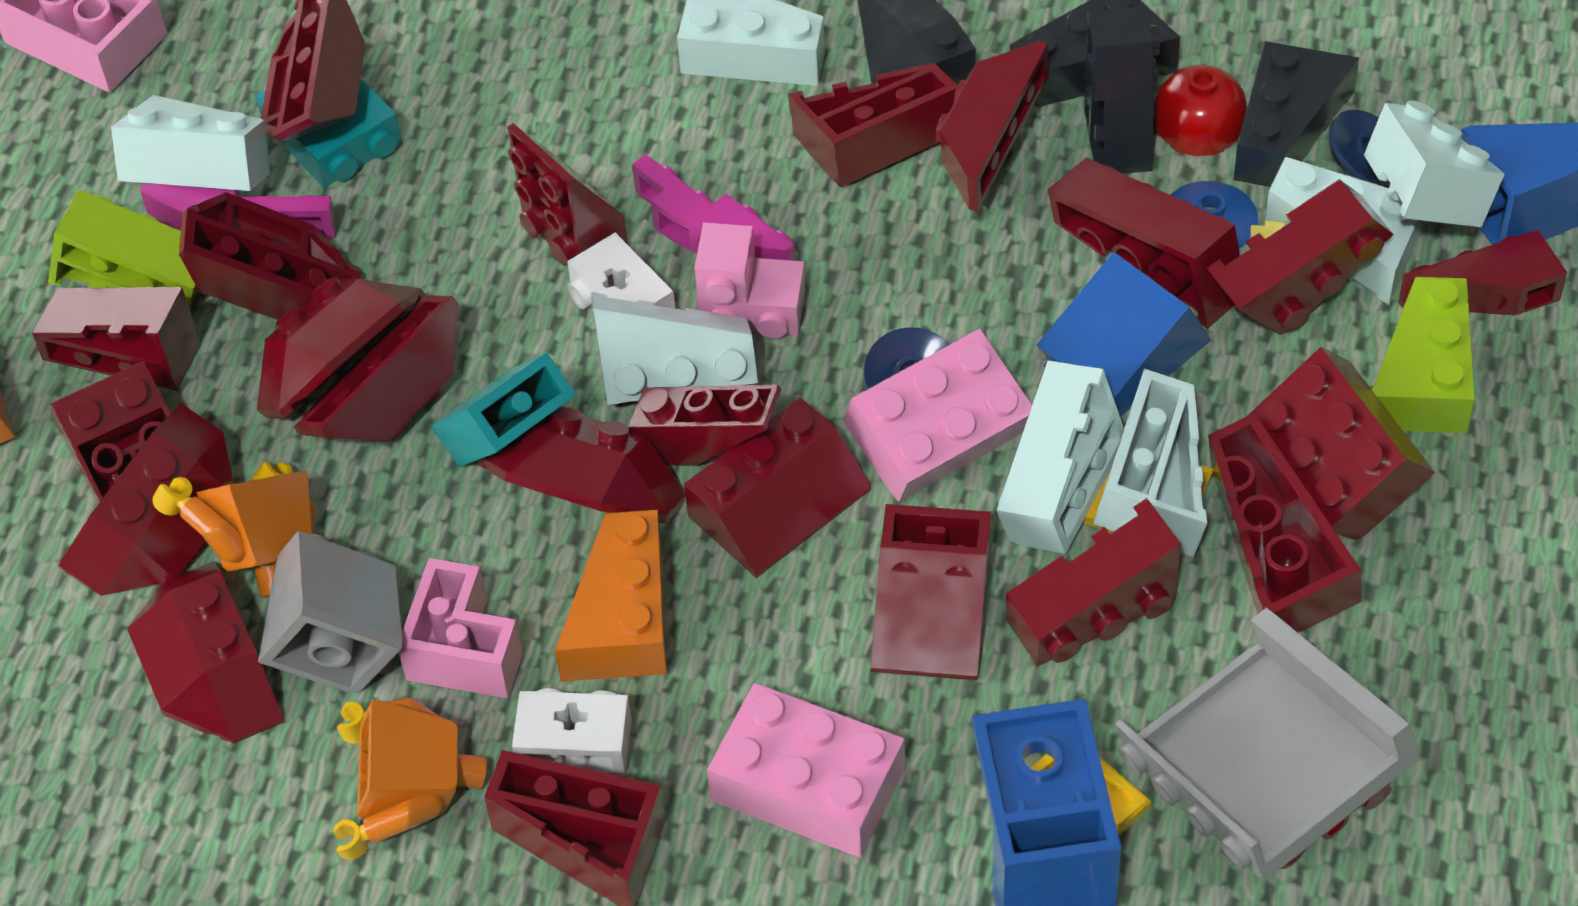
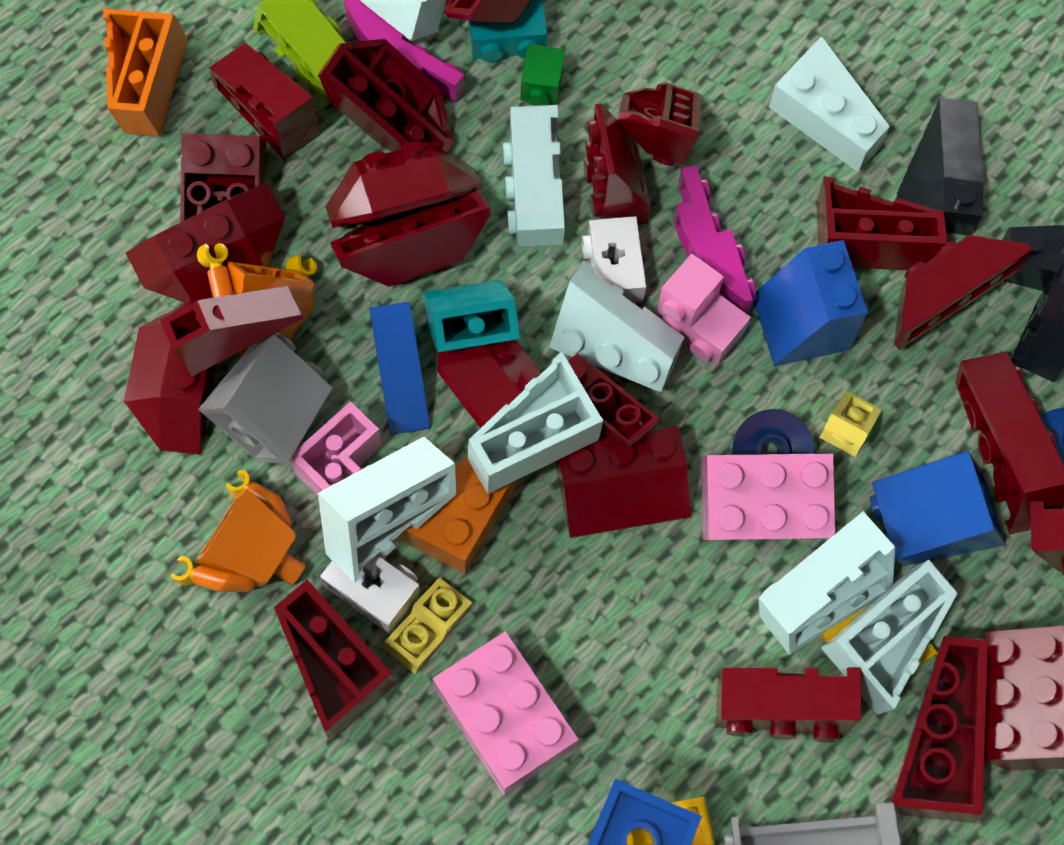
camera: 25 degrees right, 15 degrees up
(240, 547) = (227, 324): none -> dark red slope
(415, 159) = (542, 75): none -> green brick
(454, 510) = (399, 368): none -> blue slope
(475, 255) = (535, 176): none -> light aqua wedge
(534, 625) = (381, 502): none -> light aqua wedge
(588, 130) = (662, 121): none -> dark red wedge
(656, 462) = (535, 428): none -> light aqua wedge
(662, 739) = (427, 625): none -> light yellow slope
(860, 216) = (811, 305): none -> blue slope
(931, 591) = (674, 631): dark red slope -> none
(974, 309) = (850, 423): none -> light yellow slope

